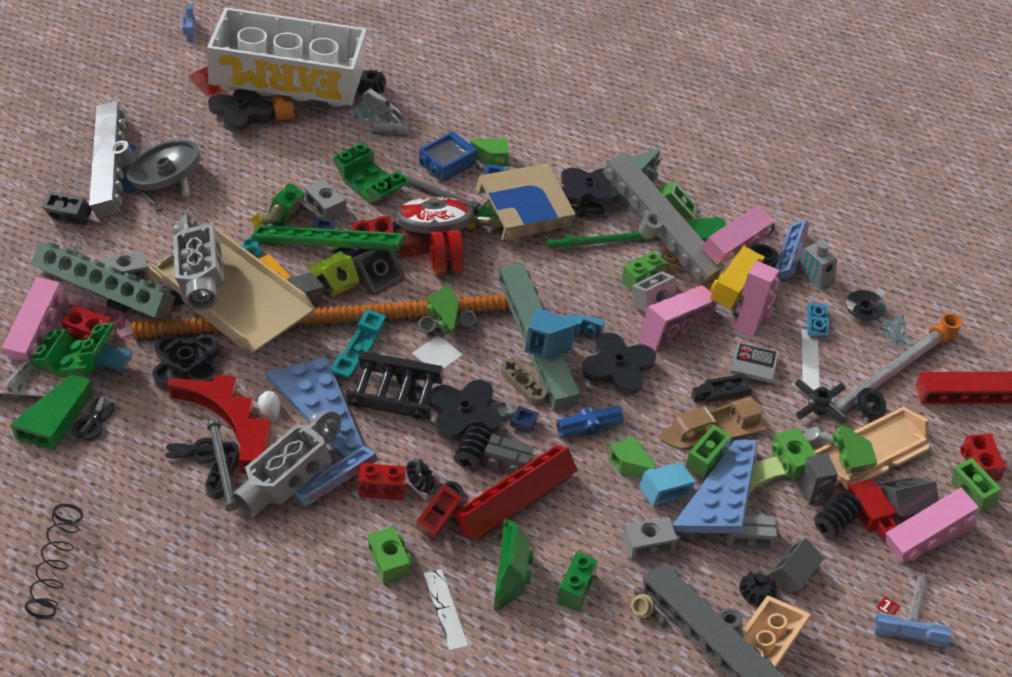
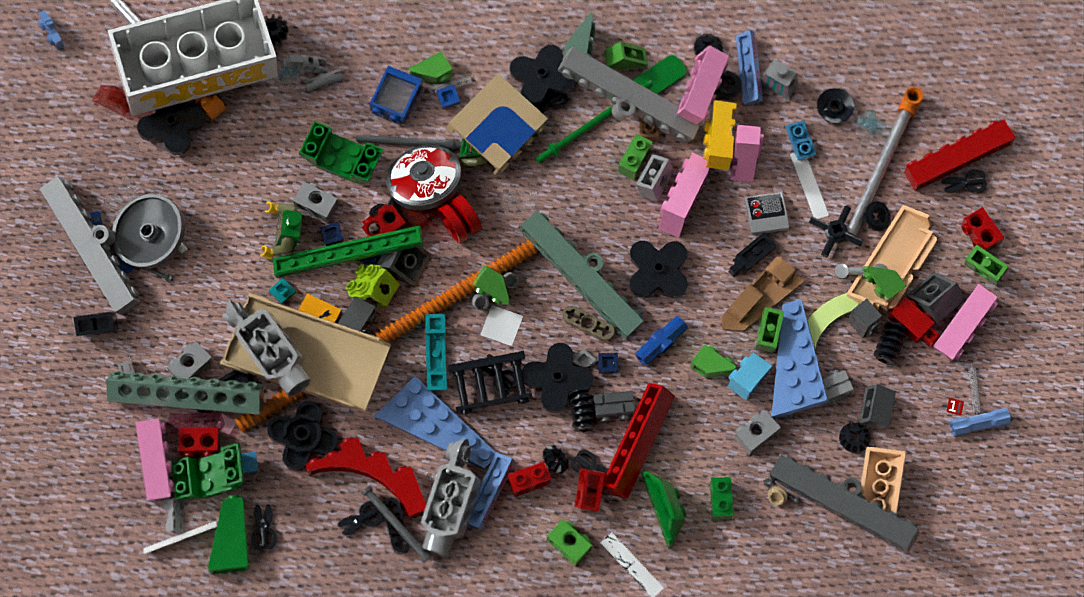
camera: 25 degrees left, 25 degrees up
(268, 406) = (396, 450): white piece -> none
(549, 334) = (596, 283): dark azure slope -> none
(588, 325) = (603, 244): dark azure slope -> none
(792, 451) = (835, 290): bright green brick -> none
(980, 414) = (960, 183): none -> black piece

